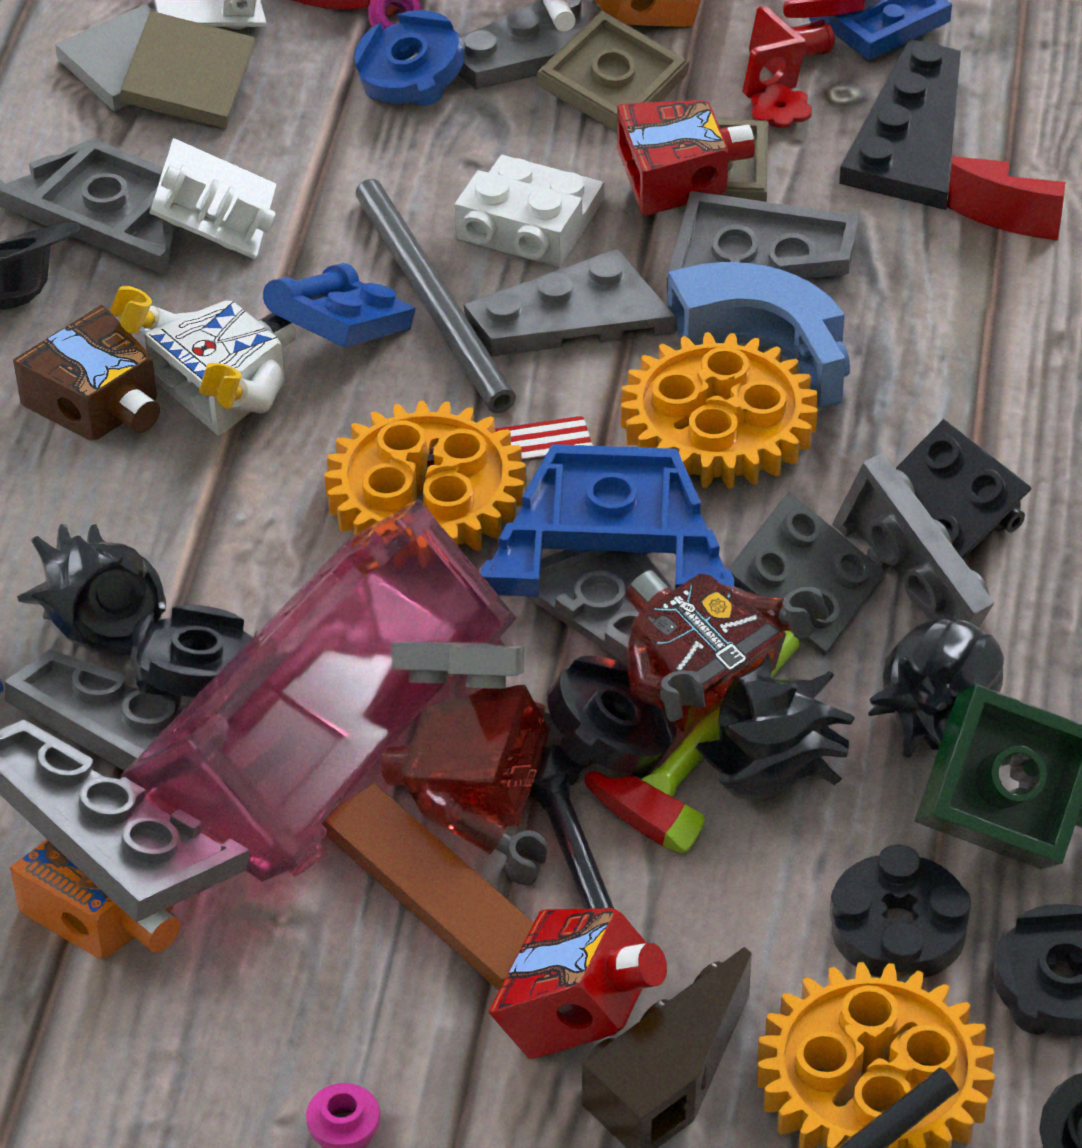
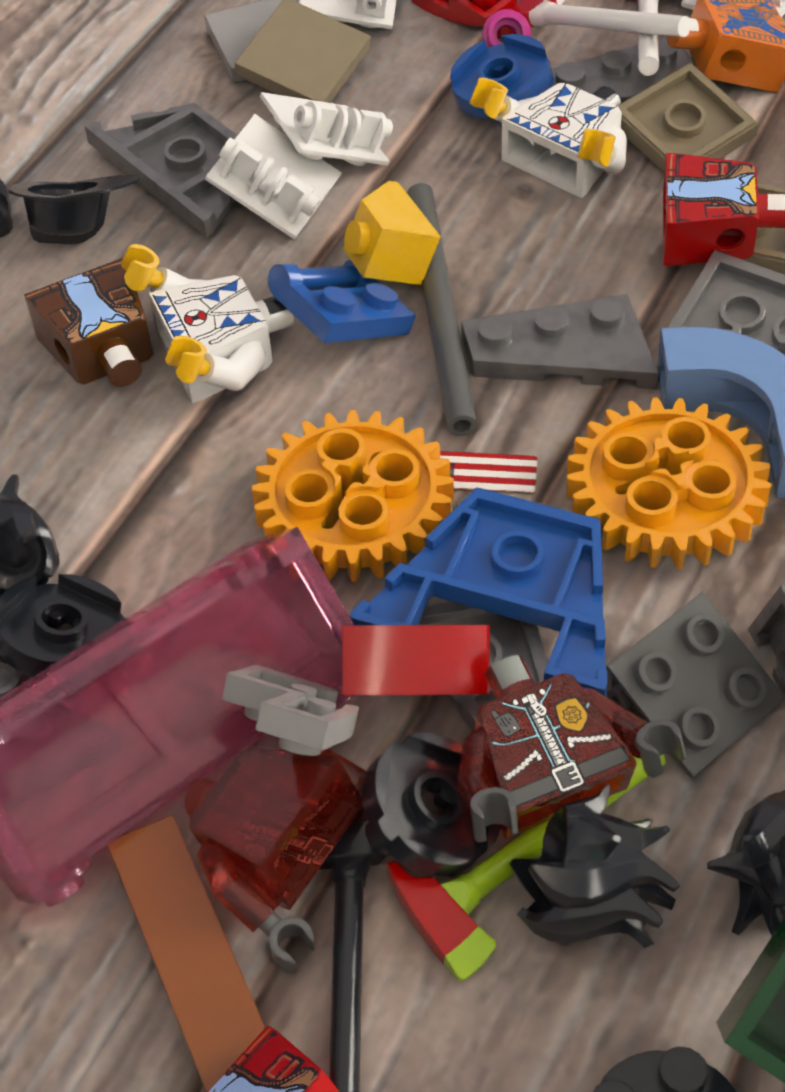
camera: 20 degrees right, 5 degrees up
(255, 140) = (331, 129): none -> white hinge
(369, 236) = (391, 237): none -> yellow slope
(491, 104) = (558, 134): none -> white torso
(527, 209) = (557, 239): white plate -> none
(555, 598) = (415, 659): none -> red slope

